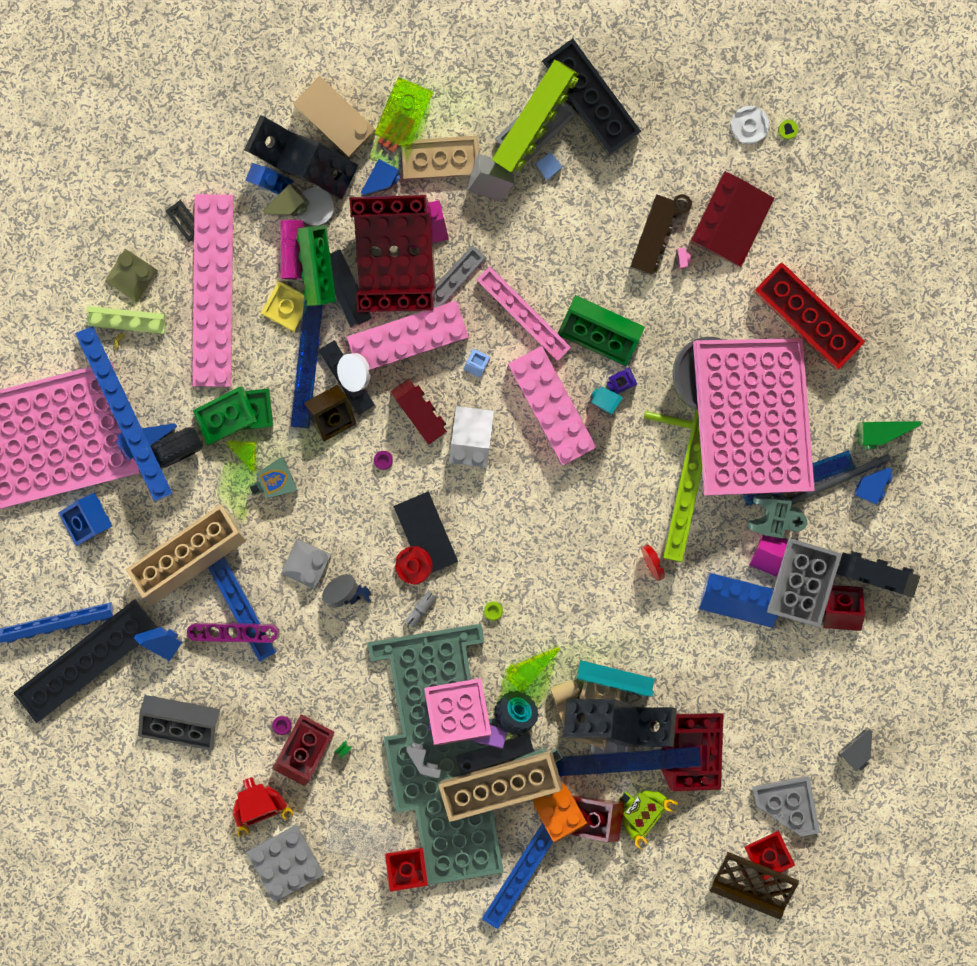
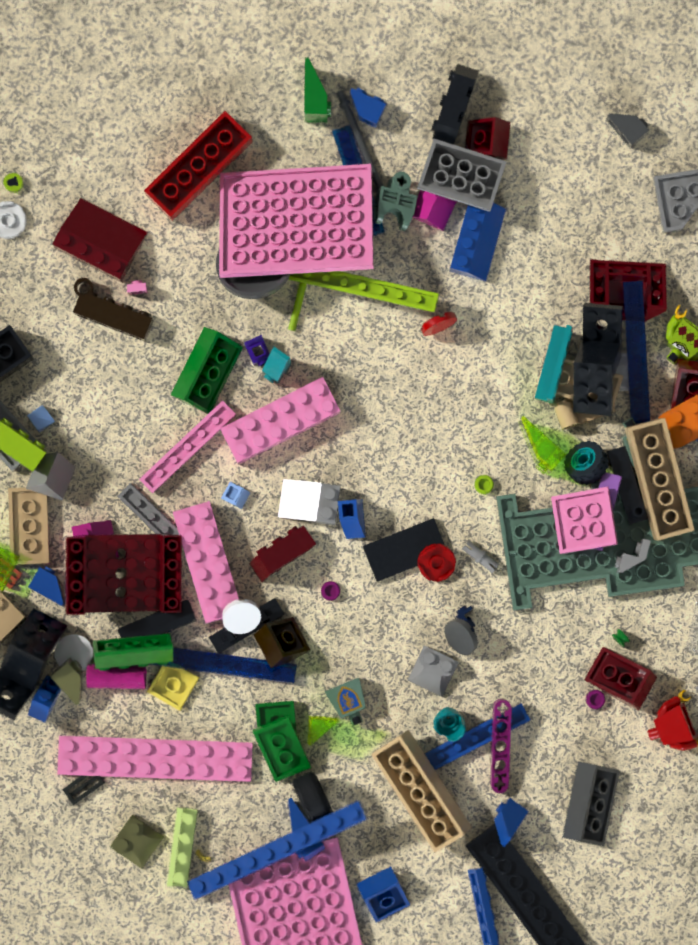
camera: 90 degrees left, 5 degrees down
(250, 584) = (451, 727): none -> teal helmet
(455, 480) = (352, 518): none -> blue slope

